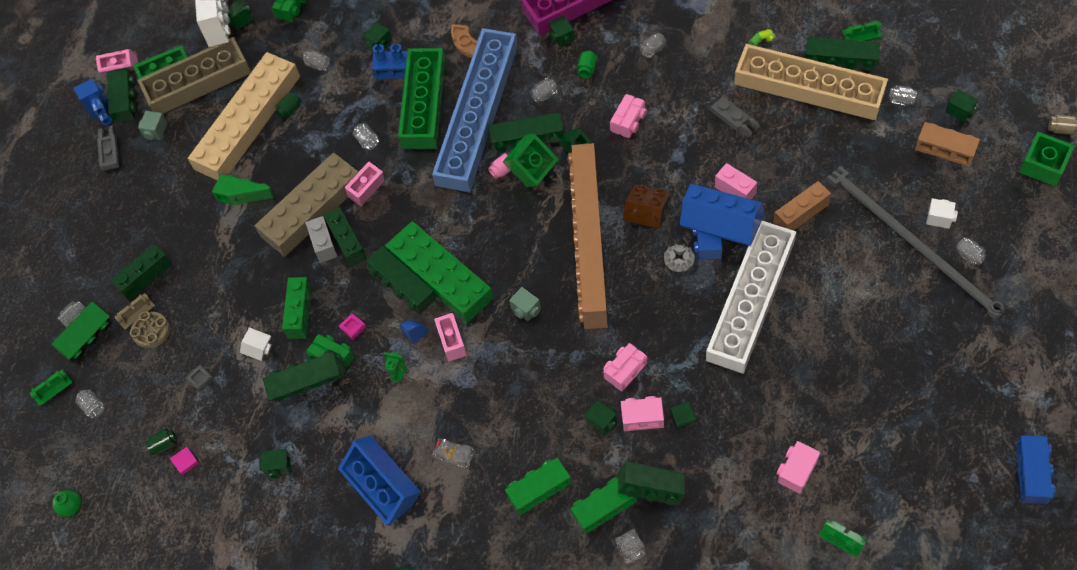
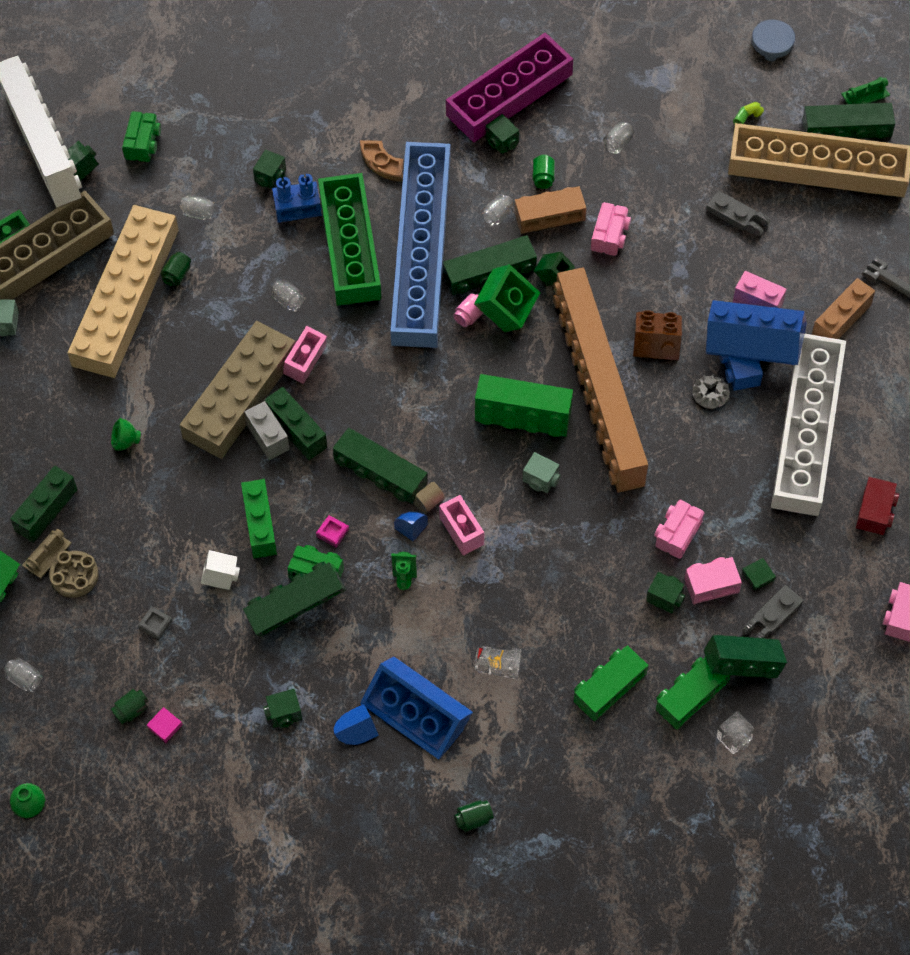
camera: 20 degrees left, 0 degrees up
(215, 227) = (124, 435): none -> green brick
(239, 191) = (141, 385): green slope -> none
(327, 488) = (355, 726): none -> blue brick
(432, 310) = (429, 497): none -> dark tan brick
(441, 271) = (447, 458): green brick -> none
(522, 247) = (523, 405): none -> green brick
(584, 95) = (550, 209): none -> medium nougat brick
(687, 450) = (774, 612): none -> dark grey hinge
(793, 373) = (876, 506): none -> dark red brick

